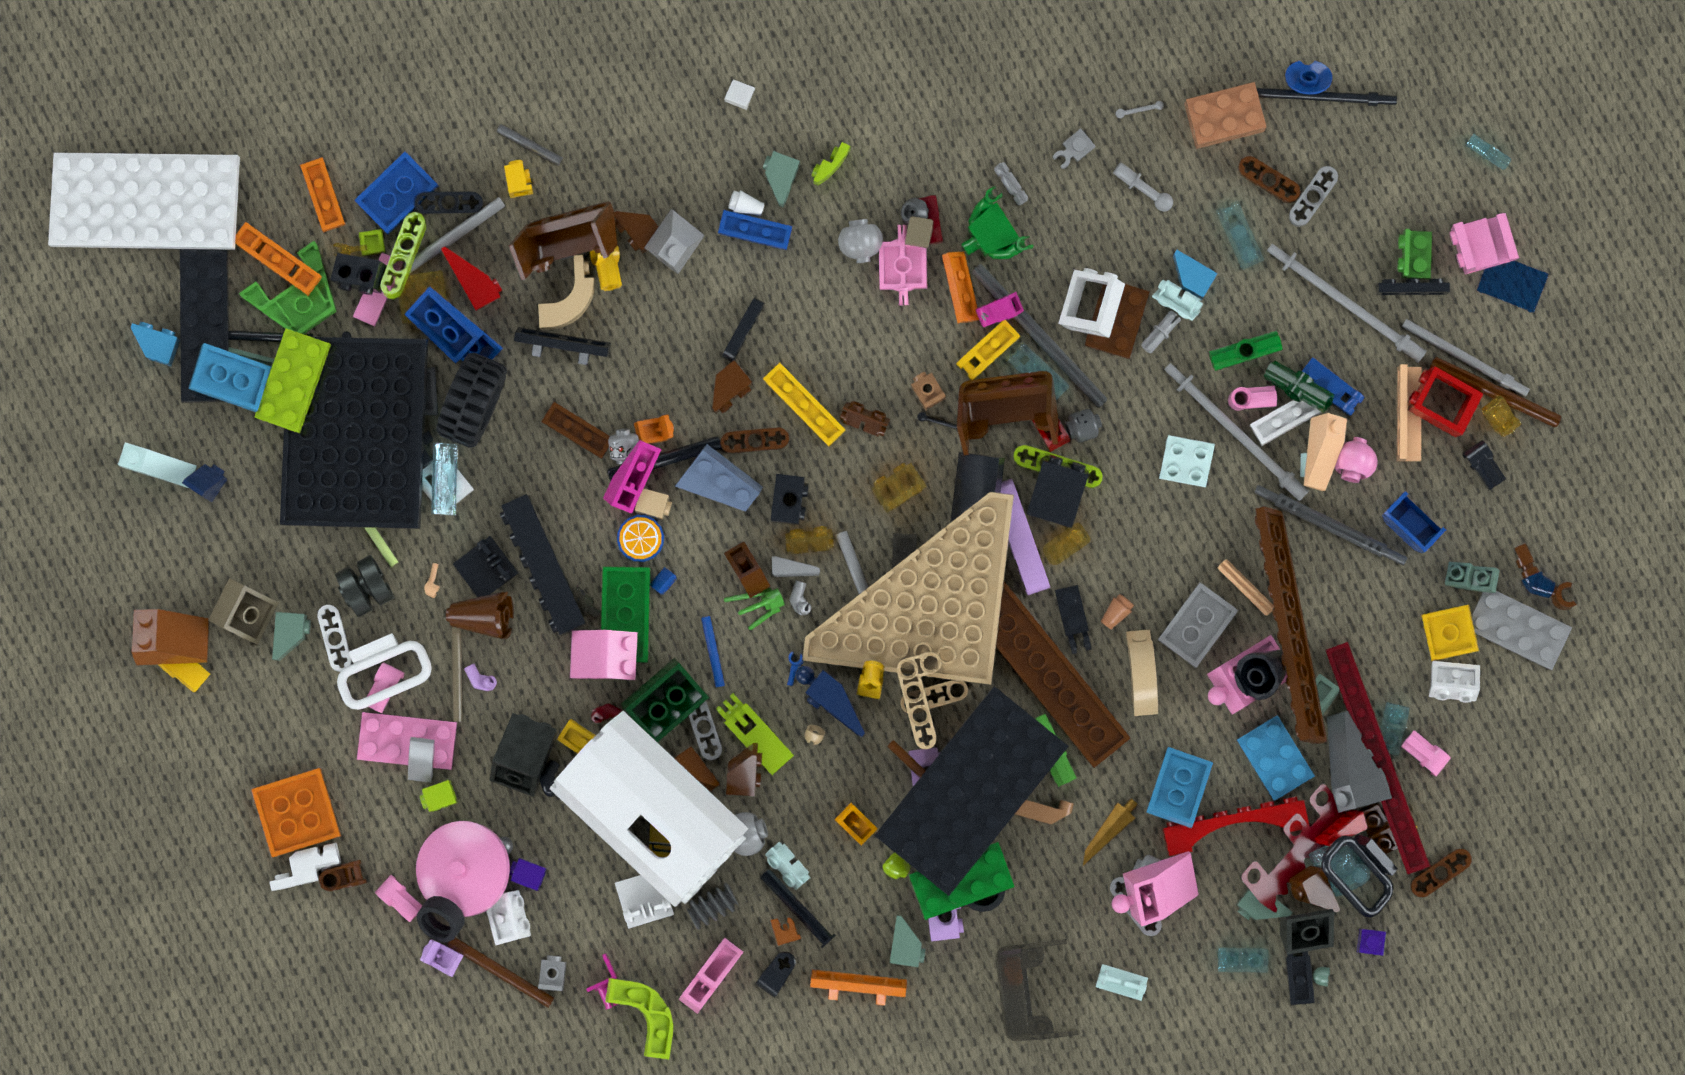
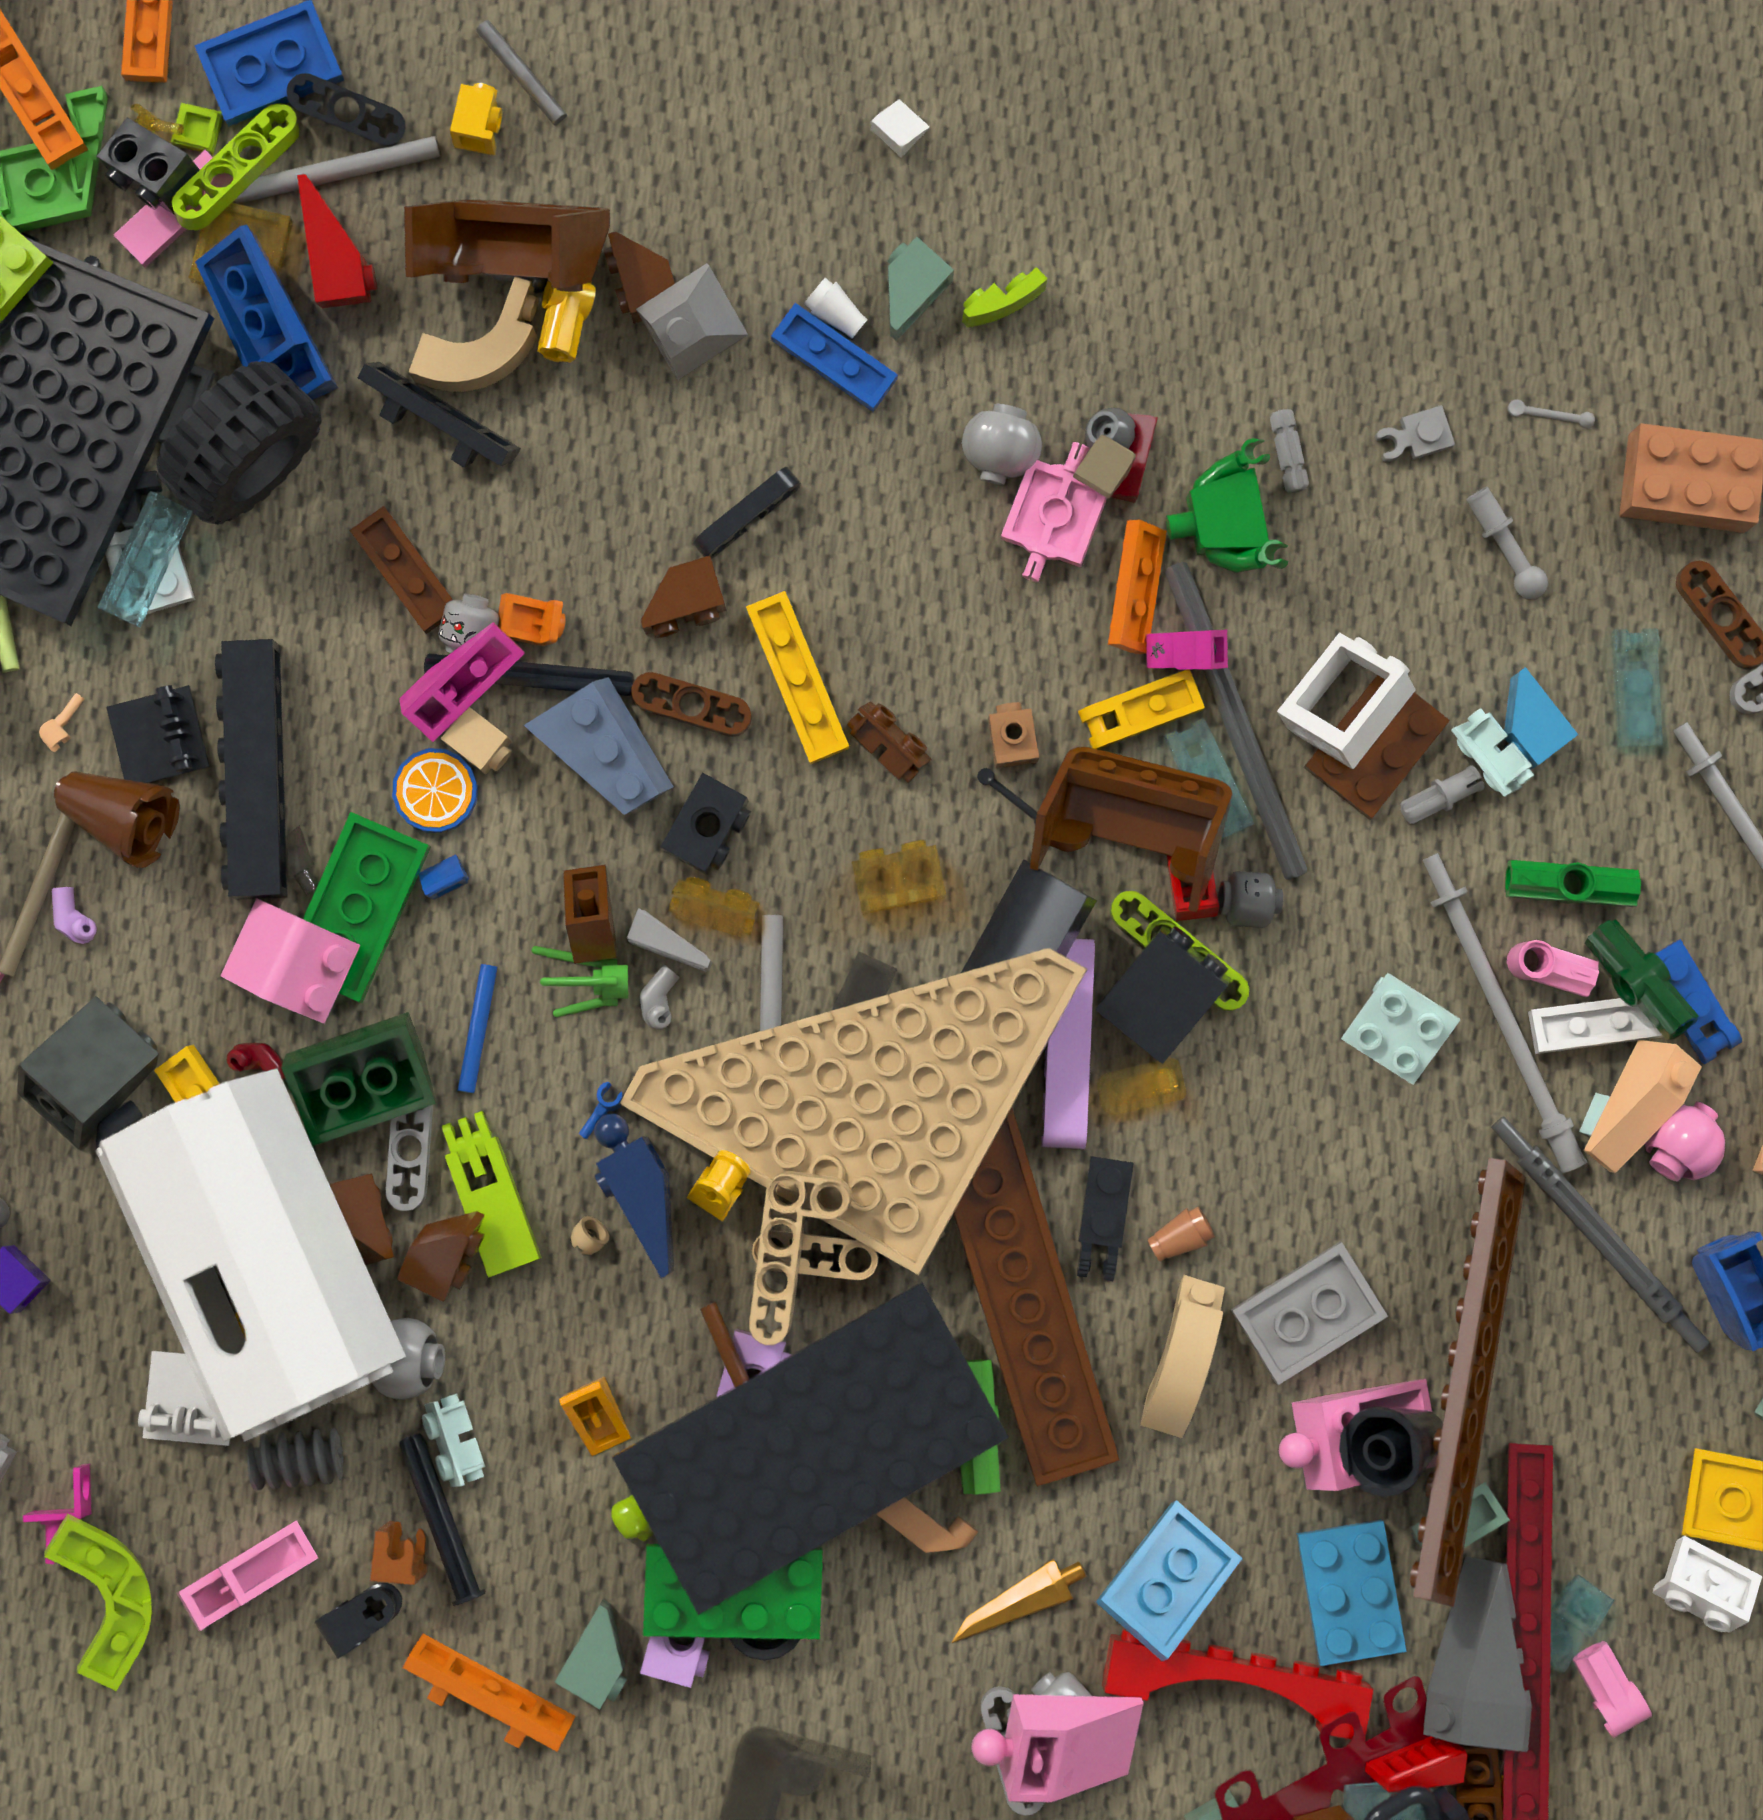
camera: 15 degrees right, 0 degrees up
(1246, 587) = (1415, 1282): light nougat axle -> none

